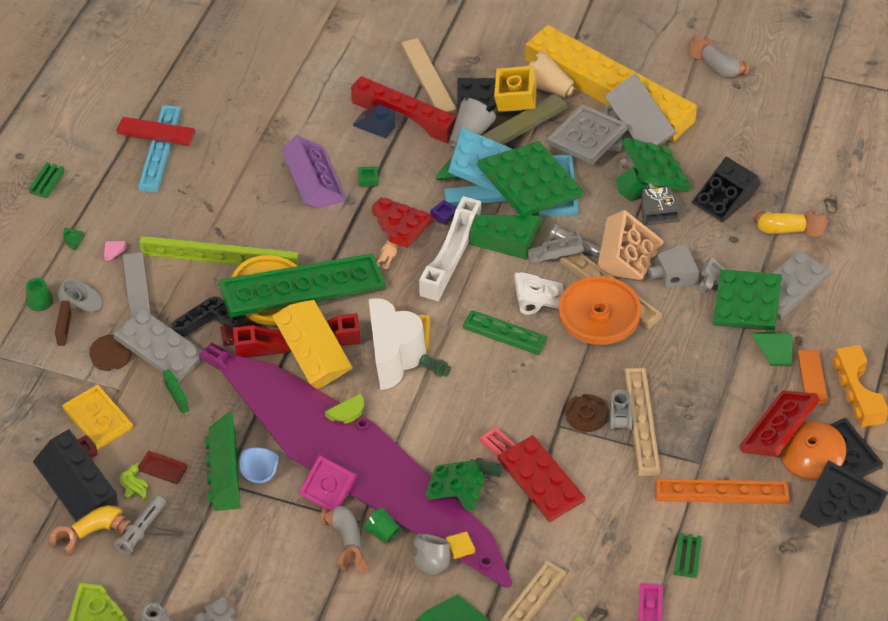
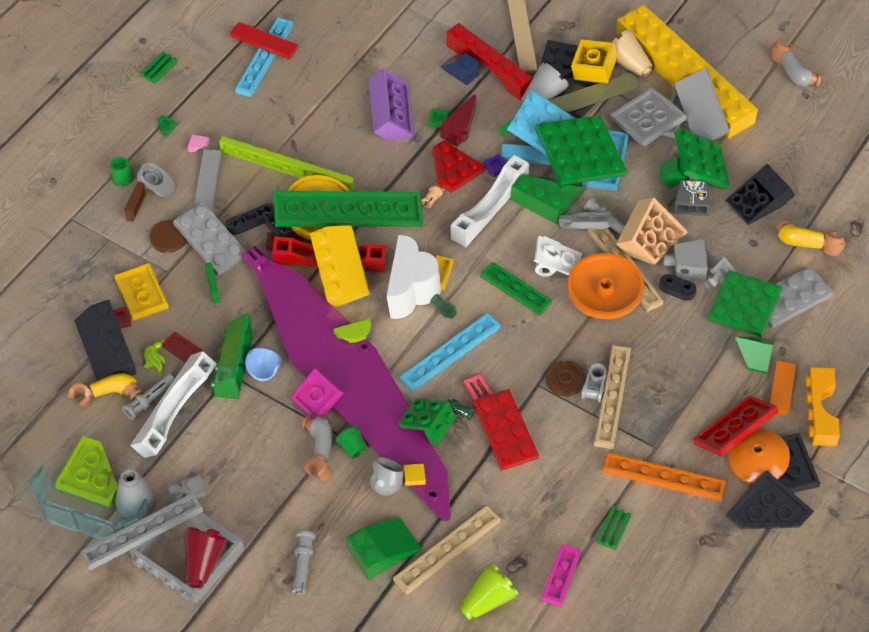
camera: 15 degrees right, 5 degrees up
(160, 557) = (156, 428): none -> white arch
(391, 178) = (458, 125): none -> dark red slope
(455, 411) = (449, 352): none -> medium azure tile
(672, 298) = (677, 287): none -> black plate

